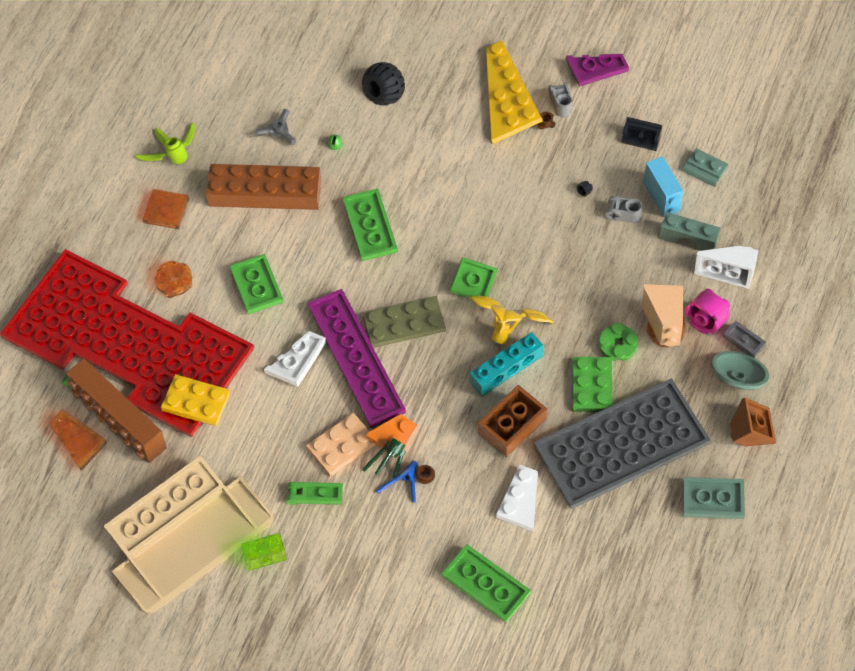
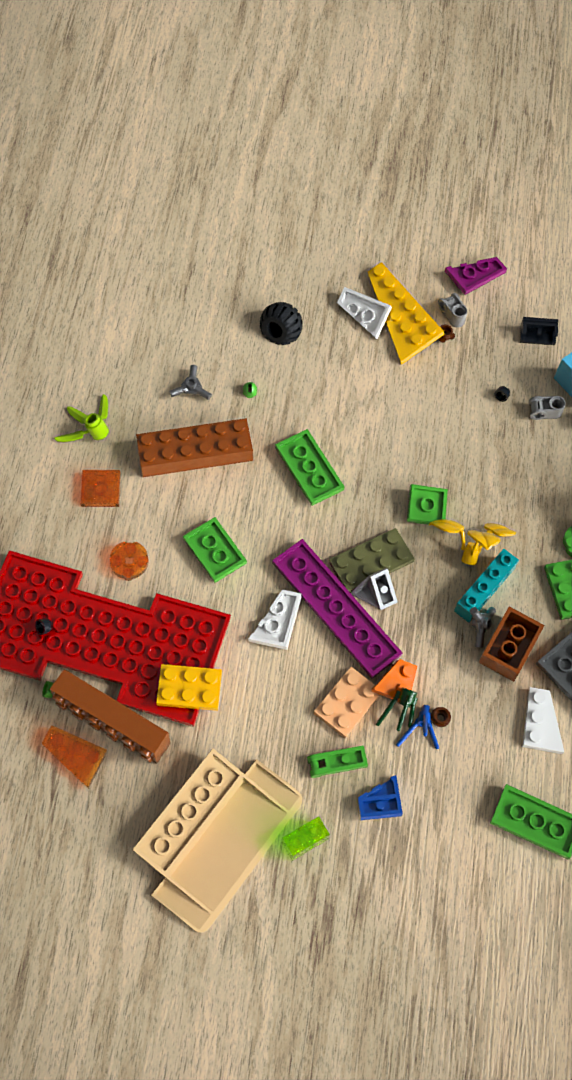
camera: 20 degrees left, 5 degrees up
(77, 320) = (43, 626): none -> black hinge
(344, 536) = (381, 801): none -> blue wing
(399, 348) = (377, 590): none -> light grey slope
(471, 85) = (365, 310): none -> white wing
(490, 395) = (481, 622): none -> flat silver piece

